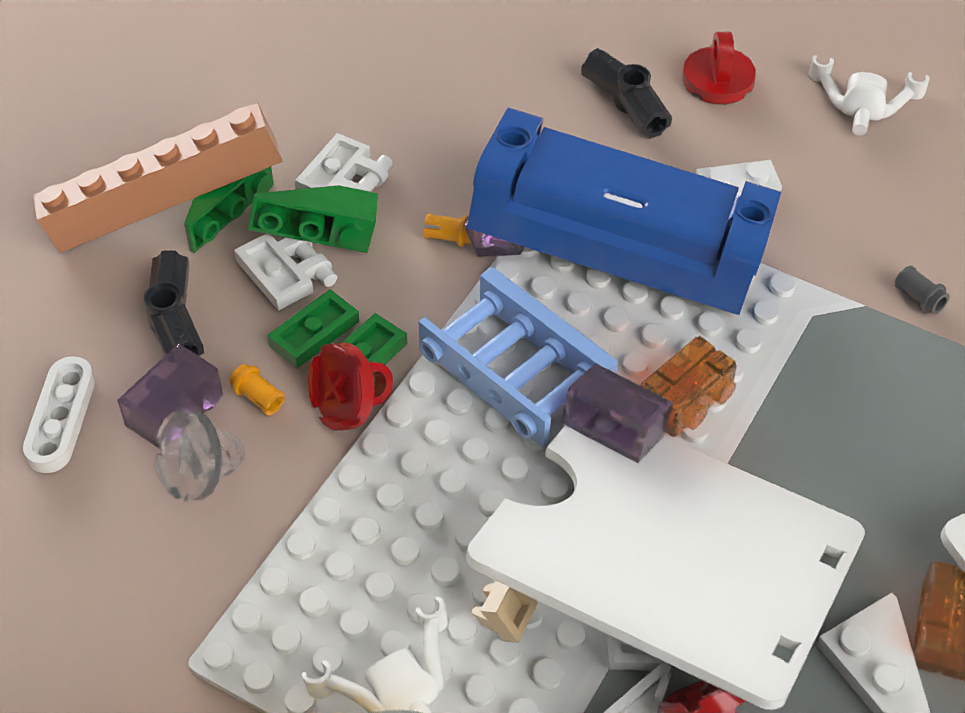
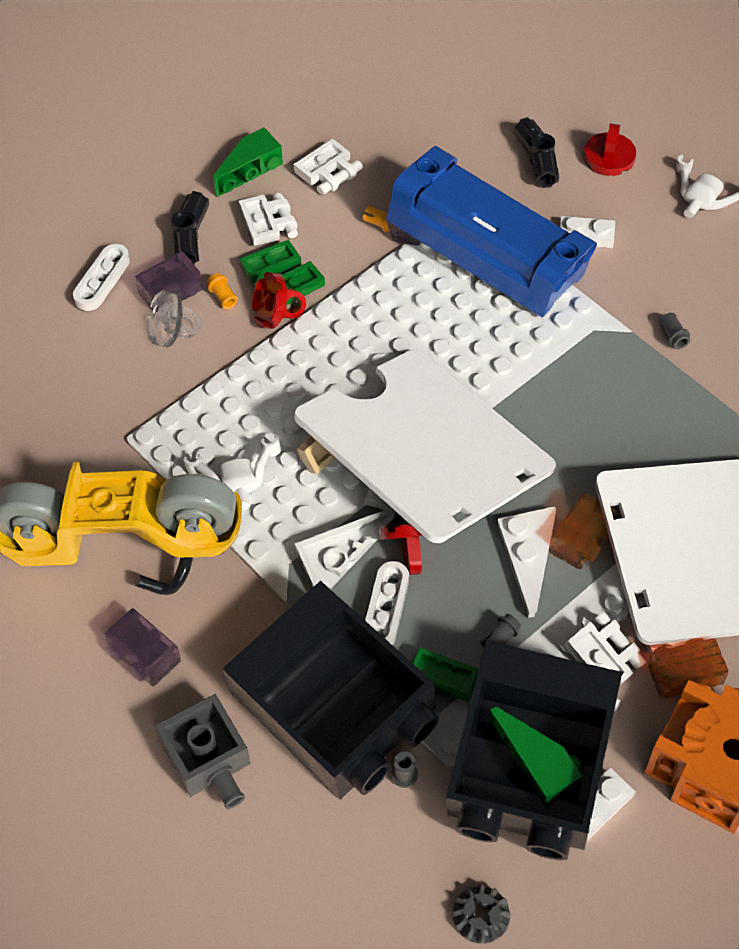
camera: 20 degrees right, 5 degrees up
(157, 178) = (205, 143): nougat brick -> none
(318, 215) = (298, 190): green slope -> none
(526, 320) = (400, 288): light blue fence -> none
(616, 412) = (428, 356): clear purple brick -> none
(693, 382) = (483, 353): clear orange brick -> none

